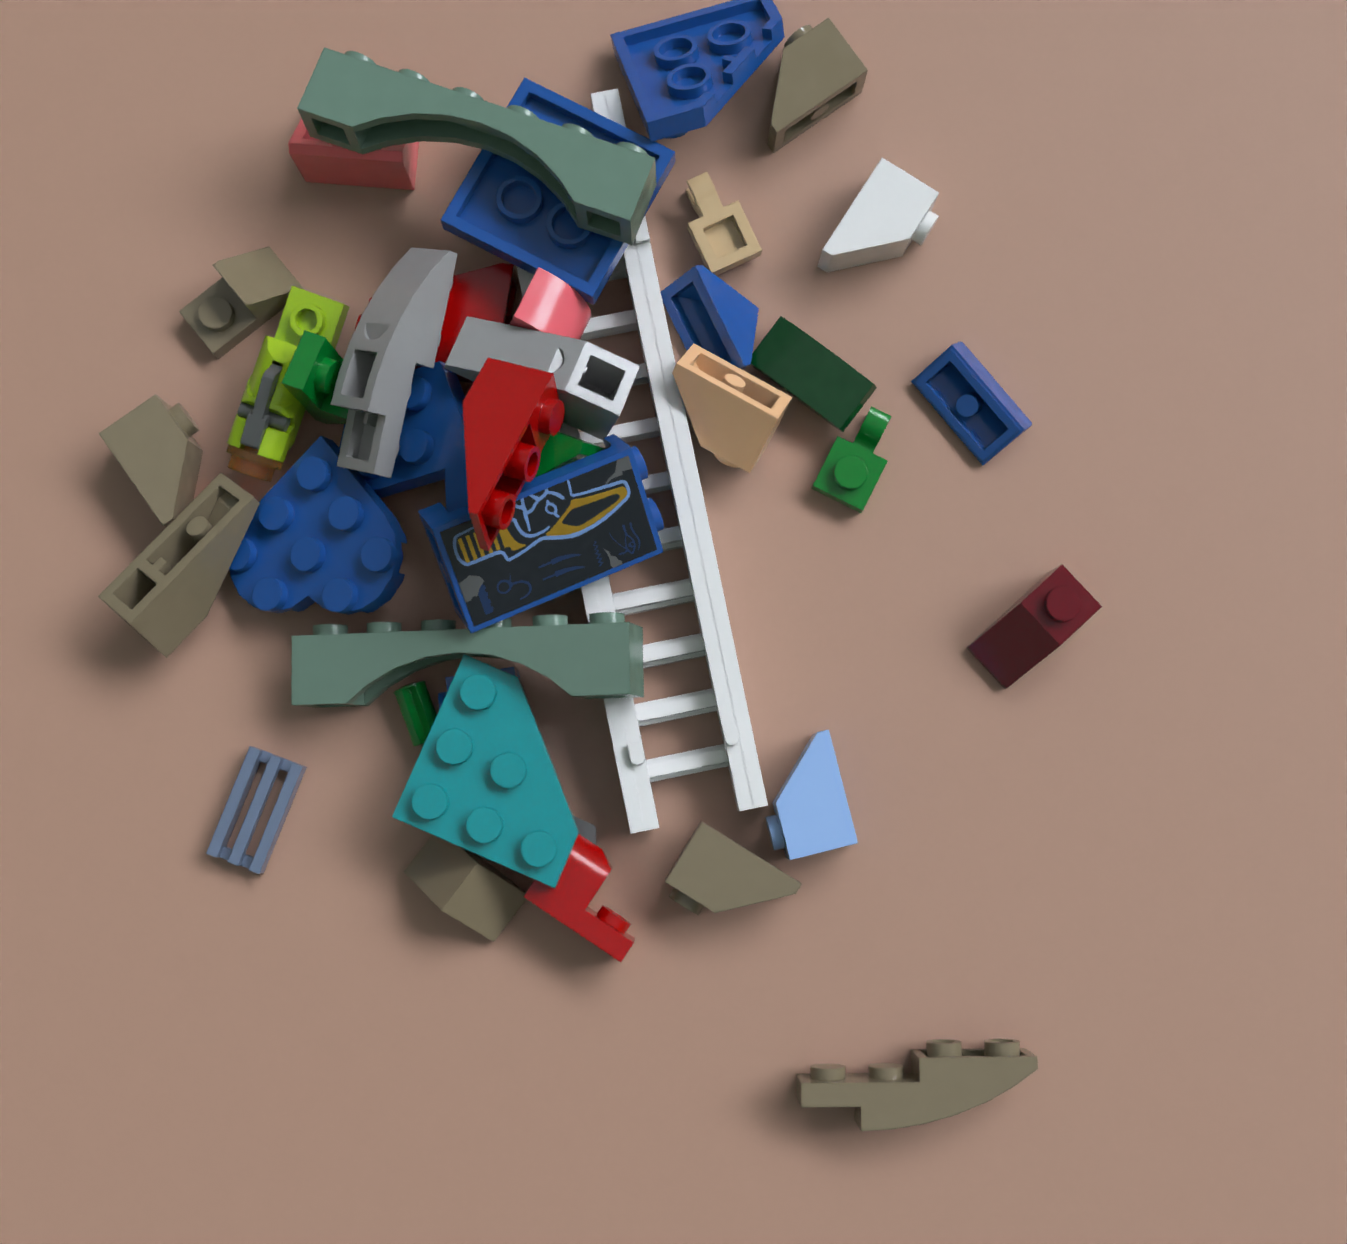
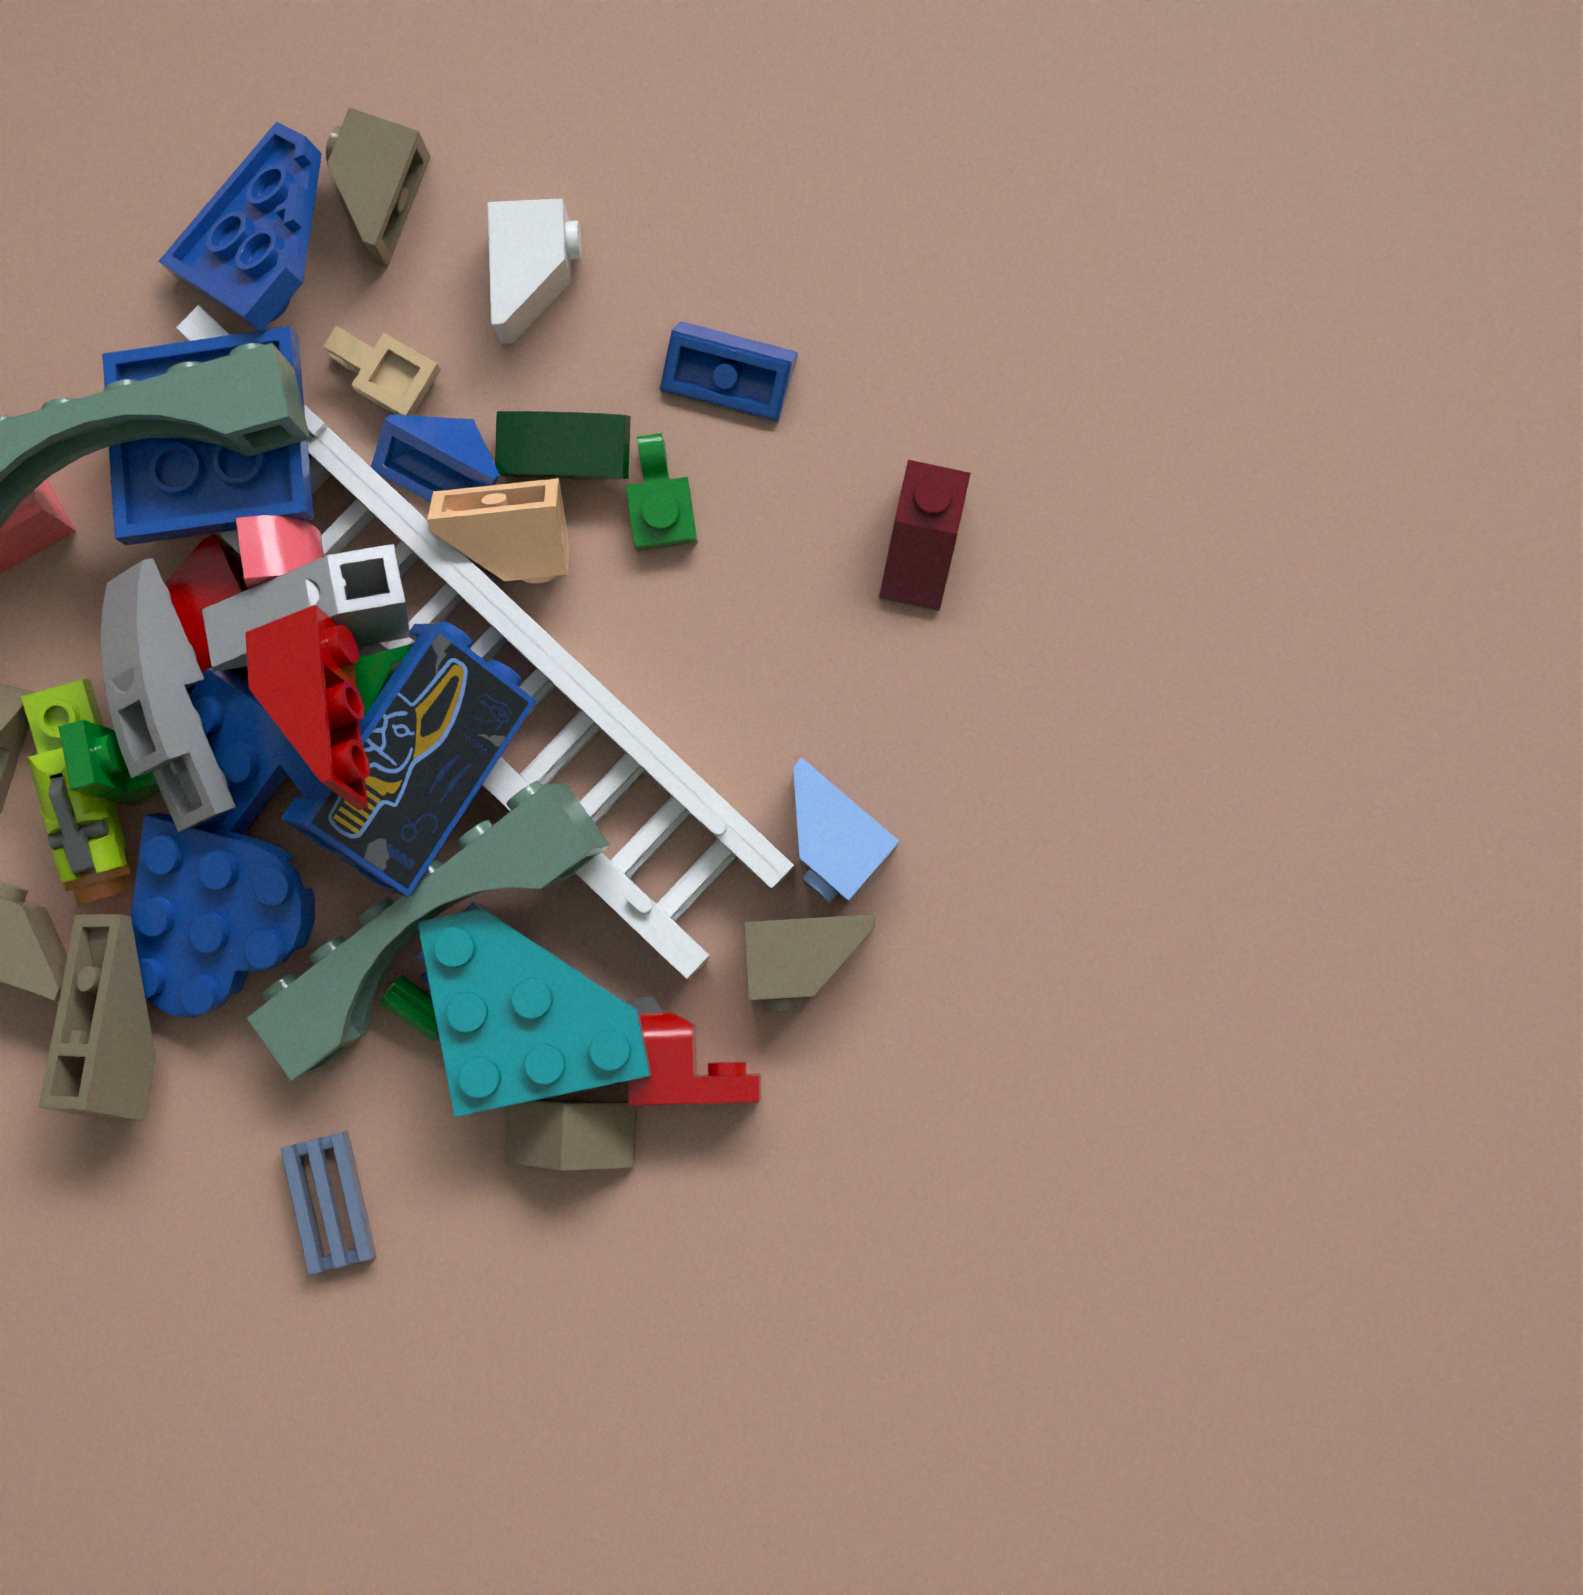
camera: 25 degrees left, 0 degrees up
(940, 1084) = (1127, 1009): dark tan slope -> none

